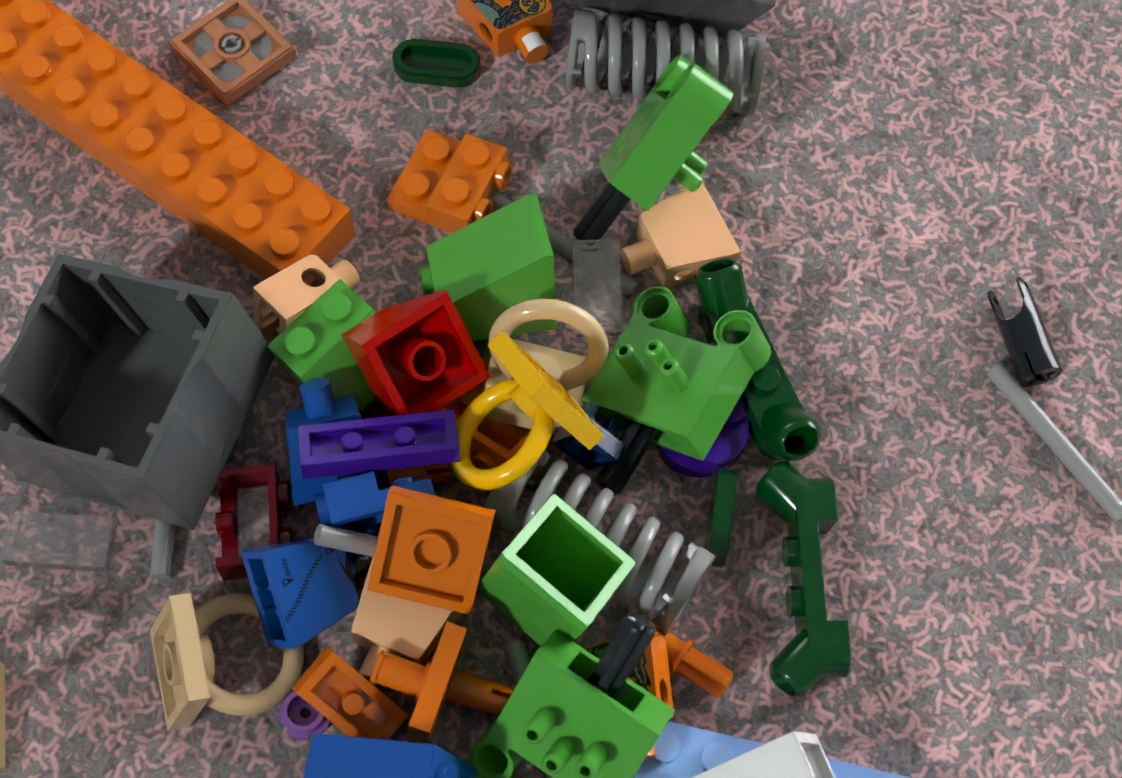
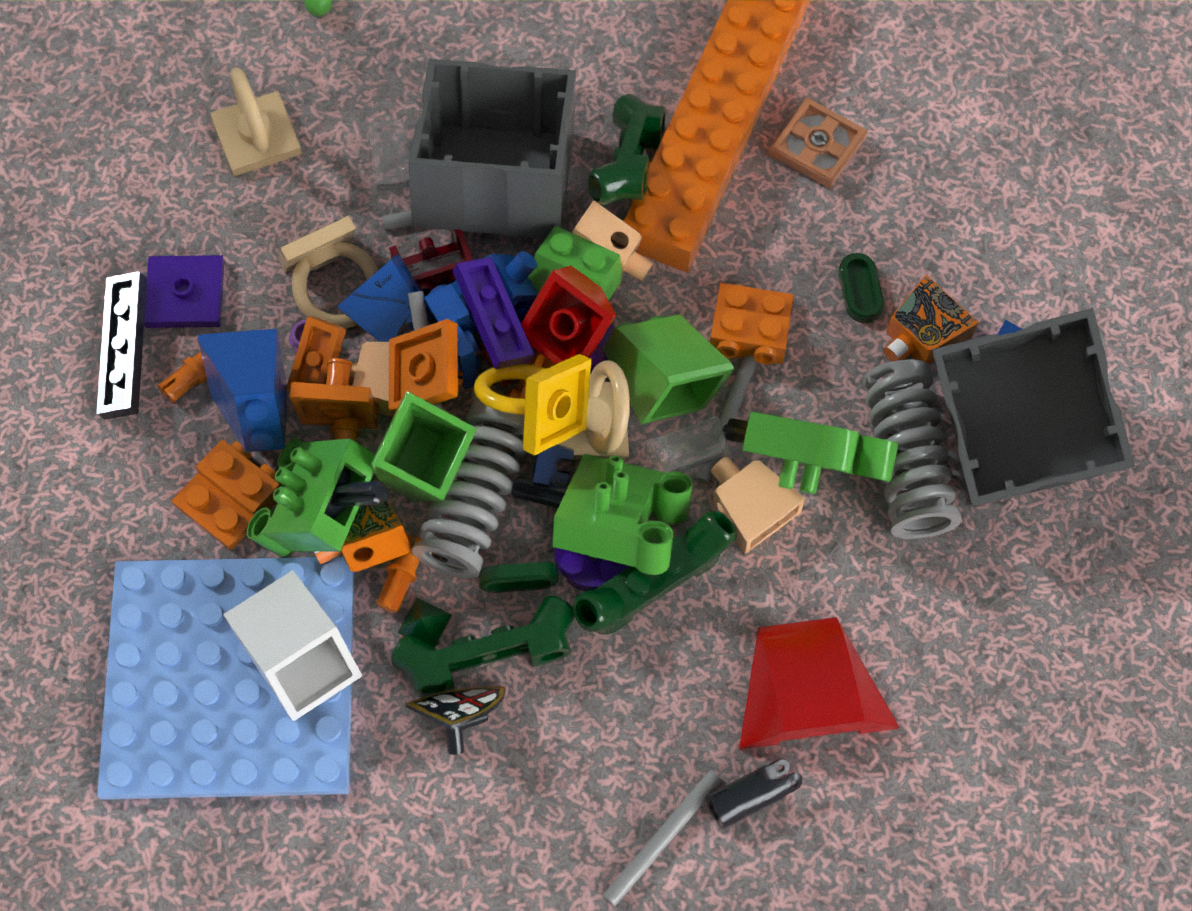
camera: 80 degrees right, 0 degrees up
(231, 236) = (627, 175): none -> dark green plate
(748, 648) = (425, 622): none -> dark green slope
(882, 623) = (459, 710): none -> shield
(910, 249) = (809, 685): none -> red wedge

